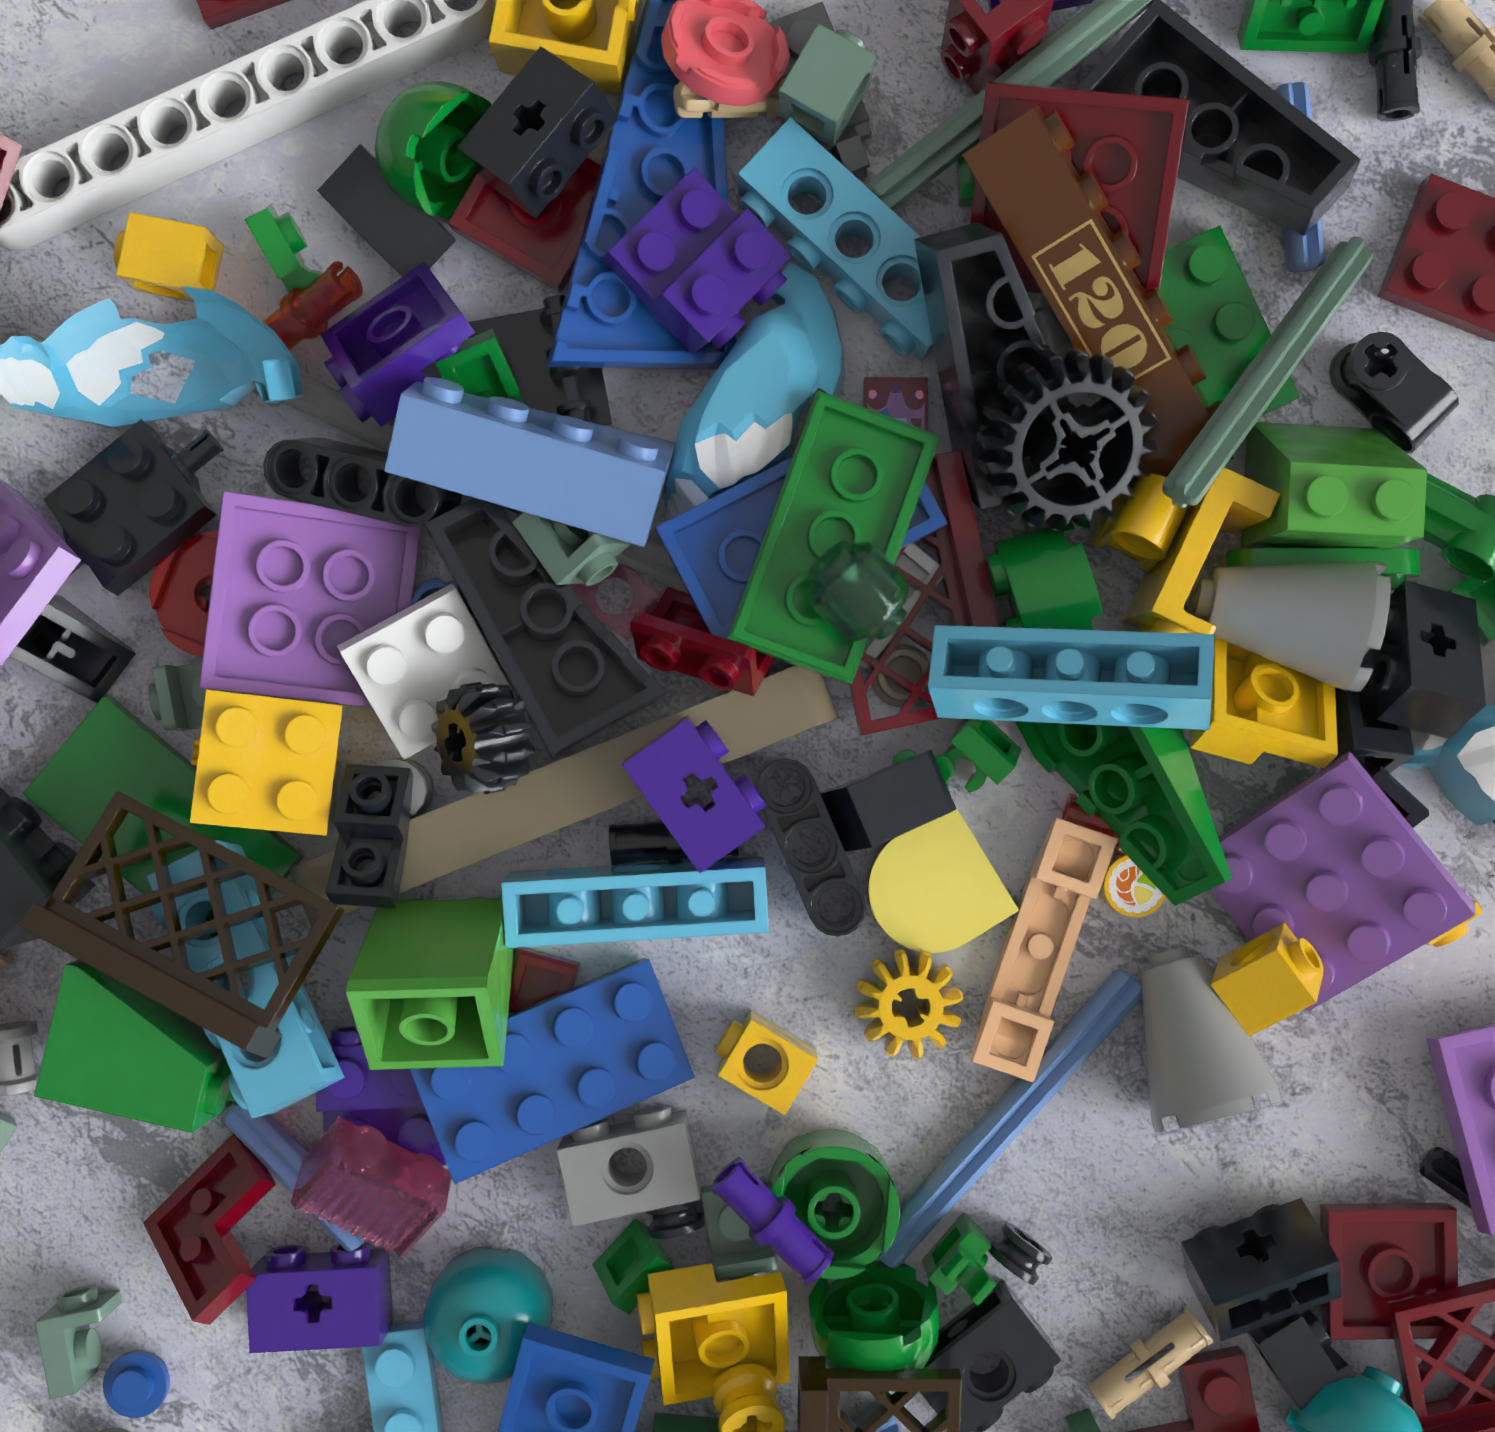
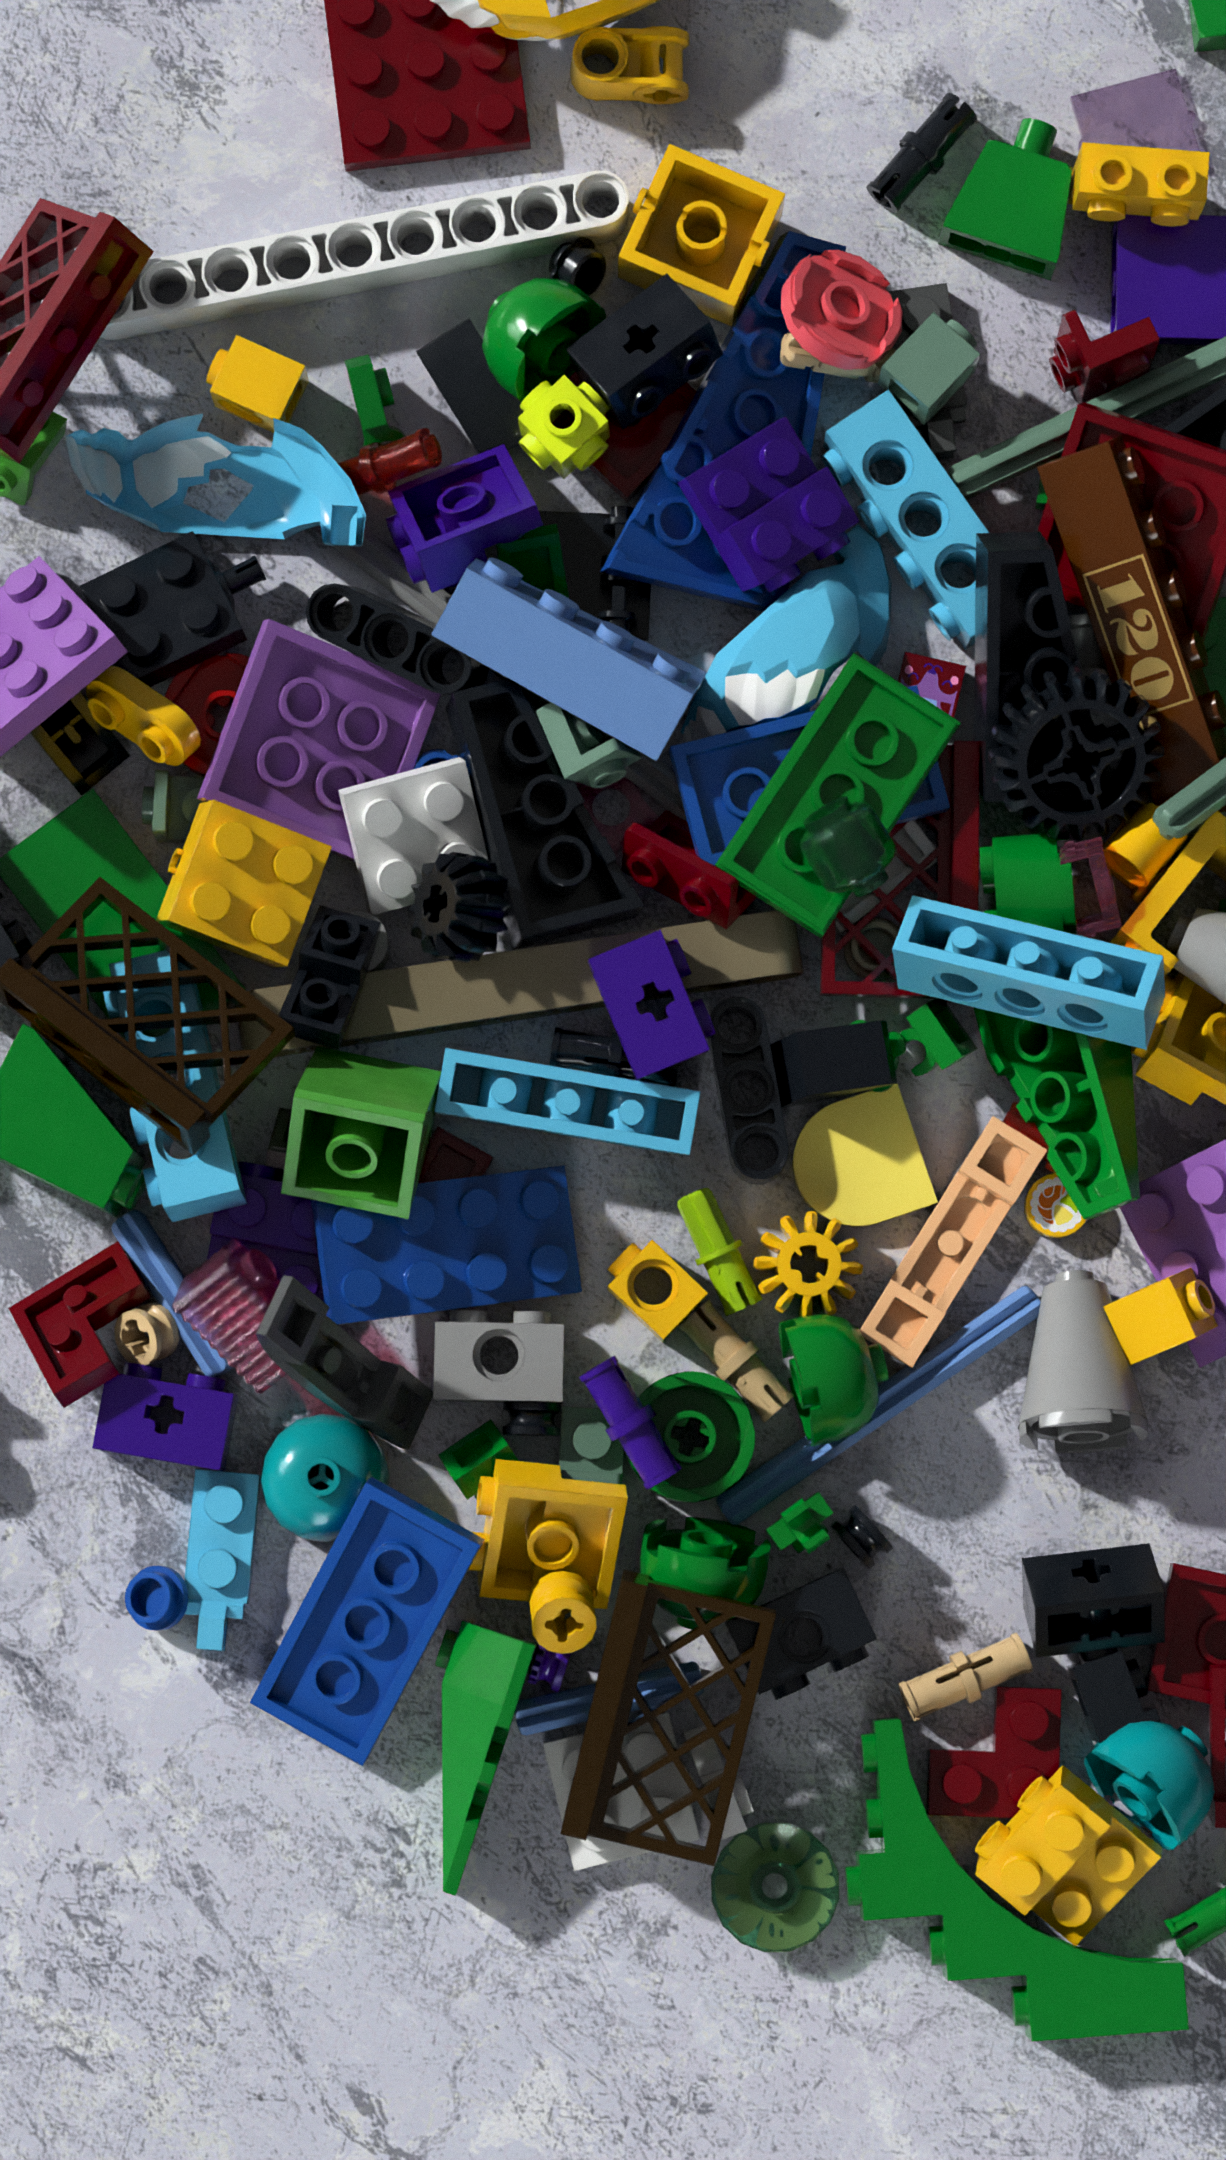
camera: 15 degrees right, 5 degrees down
(137, 621) = (142, 716): none -> yellow plate
(278, 1223) = (160, 1328): none -> tan bush
(457, 64) = (578, 265): none -> black plate
(467, 1222) = (339, 1368): none -> dark grey slope
(488, 244) = (569, 447): none -> neon yellow brick
(817, 1007) = (718, 1251): none -> lime axle
(861, 1110) = (736, 1361): none -> tan pin
(959, 1111) = (831, 1375): none -> green cylinder
(1135, 595) = (1095, 852): none -> clear pink piece

